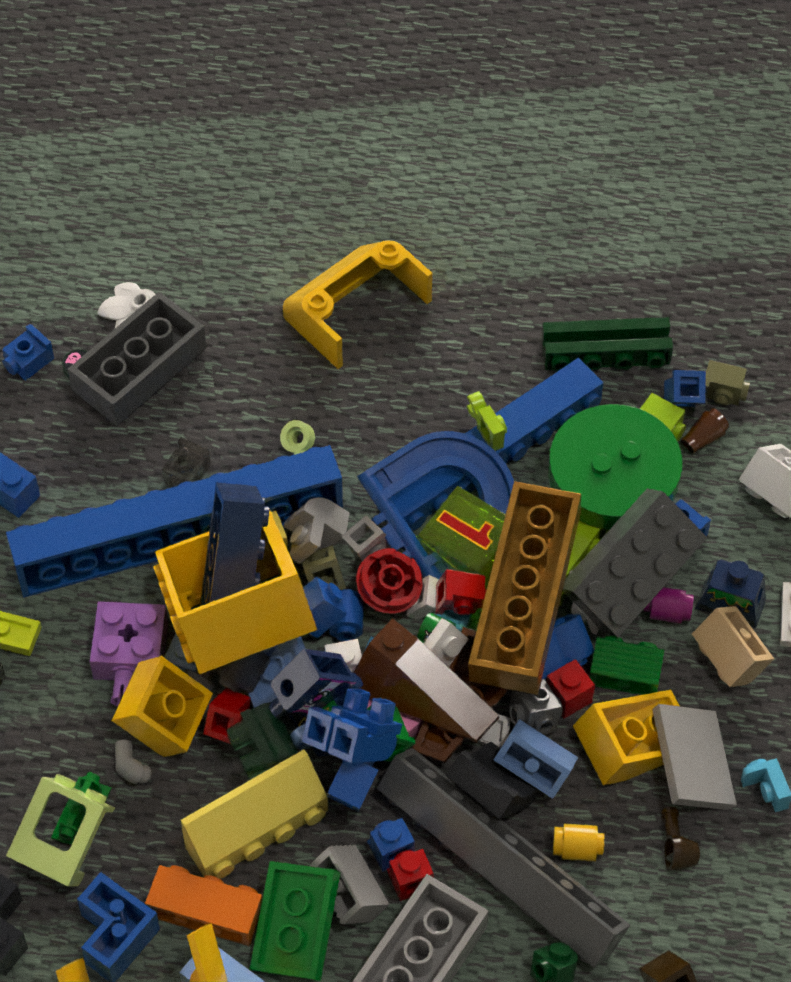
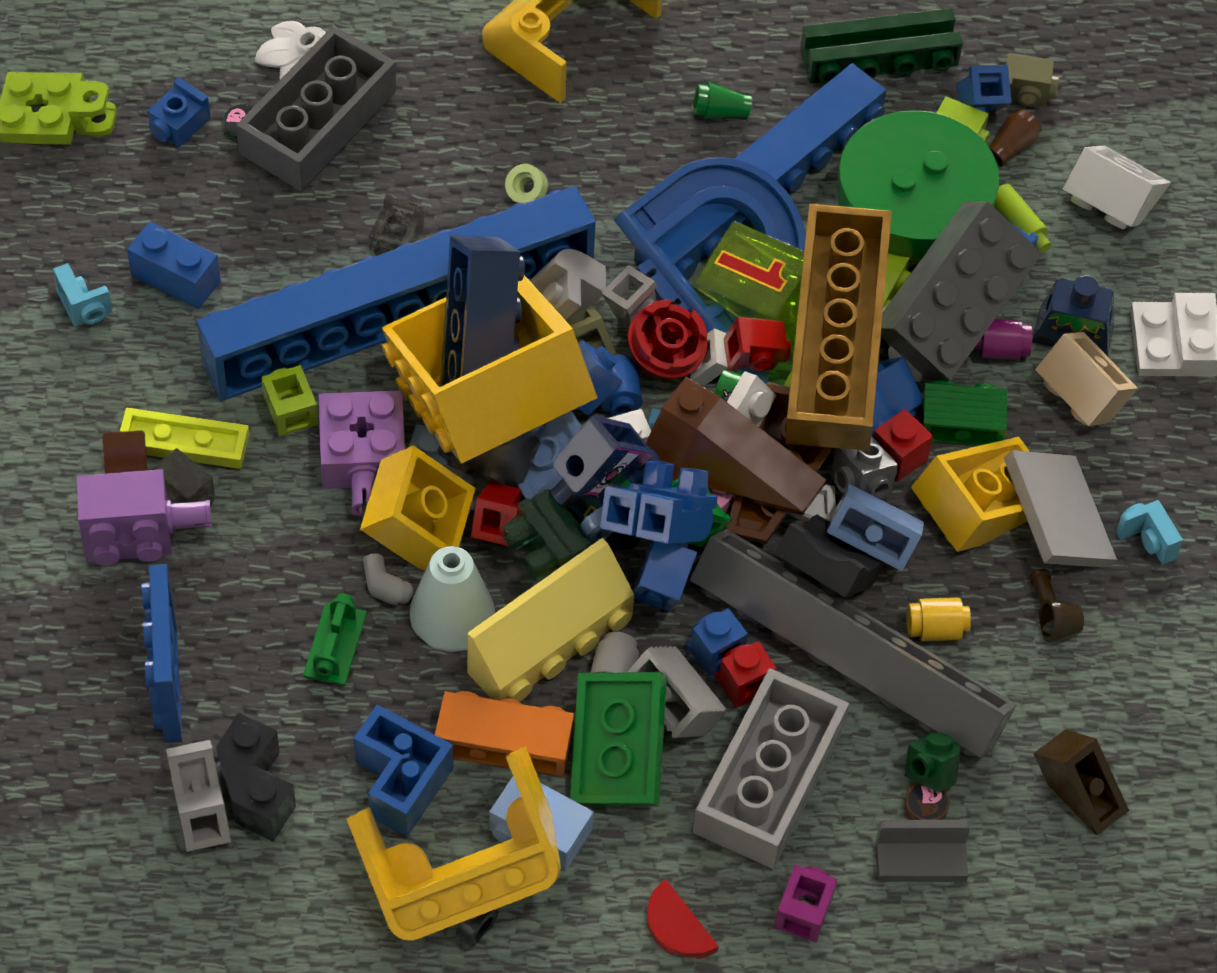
camera: 10 degrees left, 0 degrees up
(45, 858) = (306, 697): yellowish green window -> none
(76, 602) = (290, 400): none -> lime brick
(178, 787) = (450, 600): none -> light aqua cone
(305, 847) = (615, 653): none -> light grey brick
(467, 380) = (718, 102): none -> green cone
(489, 425) = (760, 147): lime plate -> none
(700, 499) = (1020, 215): none -> lime cylinder

